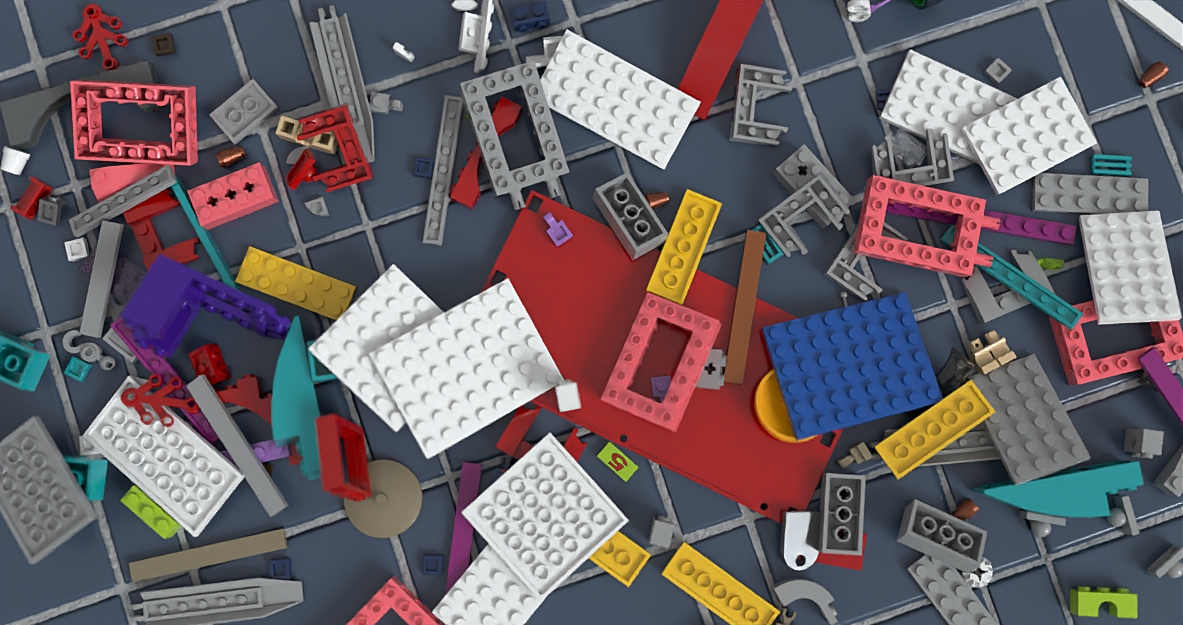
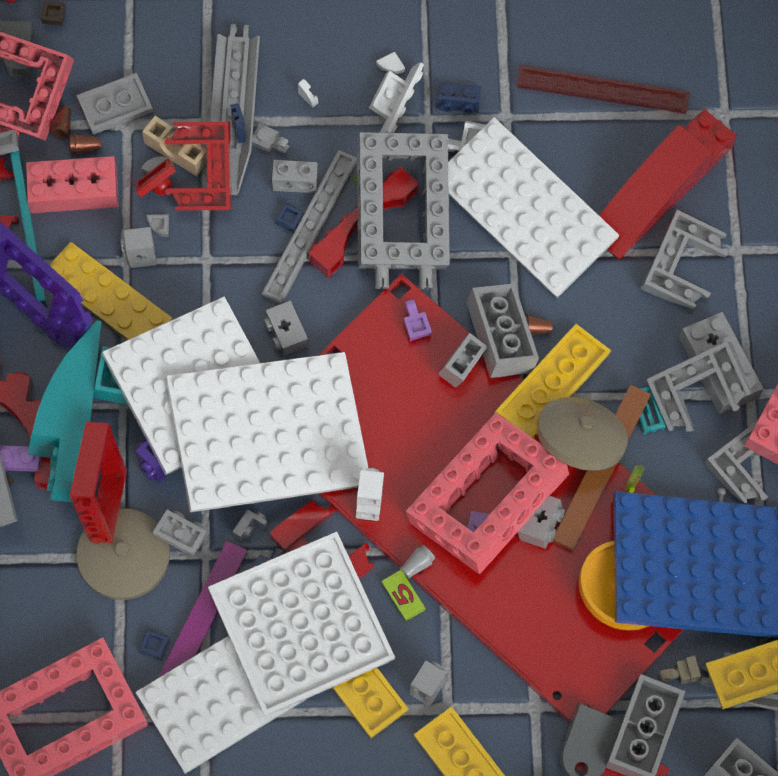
camera: 20 degrees right, 15 degrees down
(205, 142) = (61, 123): none -> copper cone
(307, 236) = (138, 247): none -> light grey brick
(354, 101) = (238, 122): none -> dark blue tile
(378, 423) = (149, 462): none -> dark purple bracket
(416, 131) = (295, 176): none -> light grey brick
(423, 469) = (180, 533): none -> light grey bracket
(462, 272) = (285, 316): none -> light grey brick
(474, 447) = (245, 525): none -> flat silver bracket
(606, 253) = (462, 360): none -> light grey brick
(622, 434) = (418, 561): none -> light grey cone
(723, 289) = (582, 433): none -> dark tan dish
(774, 310) = (634, 478): none -> clear neon green tile

